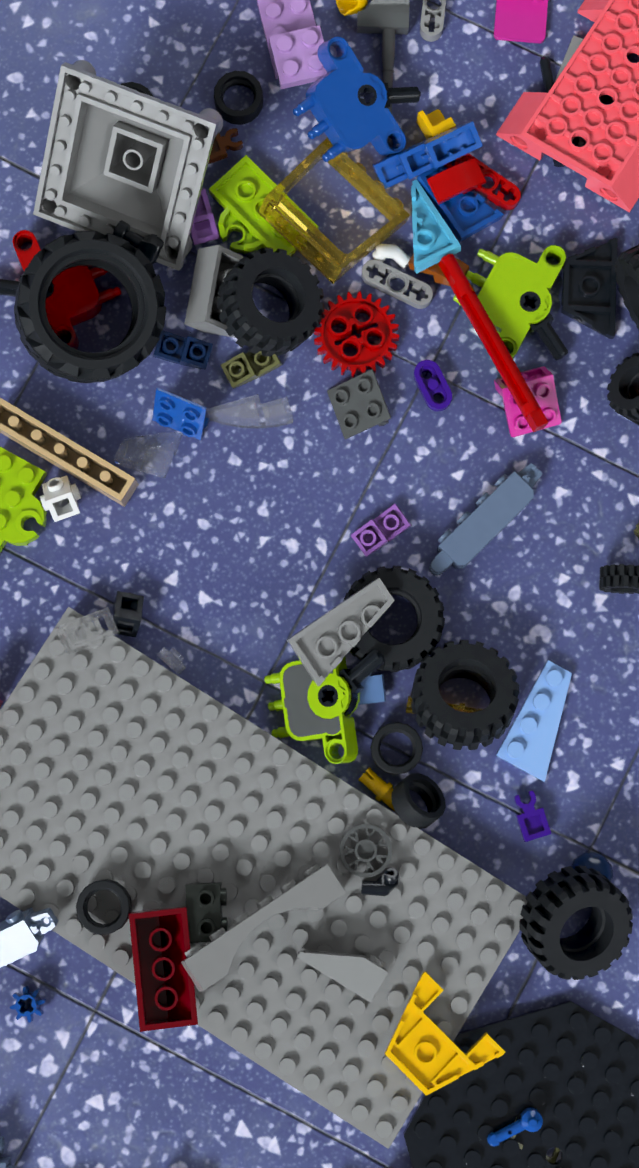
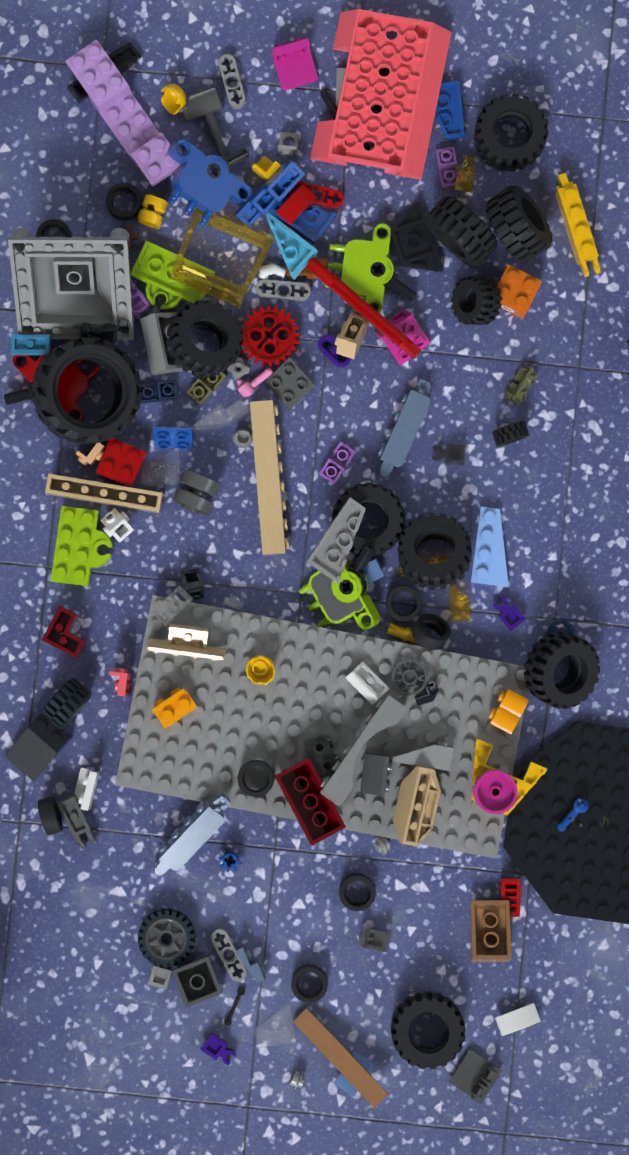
camera: 20 degrees left, 5 degrees up
(34, 767) = (174, 707): none -> light orange bracket
(42, 224) = (30, 344): none -> dark azure plate
(70, 398) = (94, 455): none -> light nougat bracket
(86, 685) = (187, 641): none -> tan bracket
(99, 421) = (121, 463): none -> red brick
(160, 1124) = (361, 906): none -> black tyre
(169, 761) = (260, 669): none -> yellow hair
(188, 491) = (195, 498): none -> dark grey wheel
(239, 1065) = (381, 845): none -> light grey plate
(266, 966) = (374, 774): none -> dark grey slope
(270, 451) = (243, 438): none -> light grey plate
(271, 118) = (148, 216): none -> yellow wheel
(281, 515) = (267, 477): none -> tan brick
(299, 368) = (243, 369): none -> light grey plate
(300, 389) = (246, 388): none -> bright pink piece
(305, 836) = (367, 683): none -> white slope
(306, 1033) = (416, 806): none -> tan wedge
(433, 1070) = (504, 798): none -> dark pink wheel
(463, 372) = (351, 336): none -> tan brick
(468, 780) = (458, 605): none -> clear yellow slope
(472, 111) = (286, 150): none -> light grey bracket
(481, 950) = (508, 711): none -> light orange brick
(536, 578) = (452, 454): none -> clear smoke plate

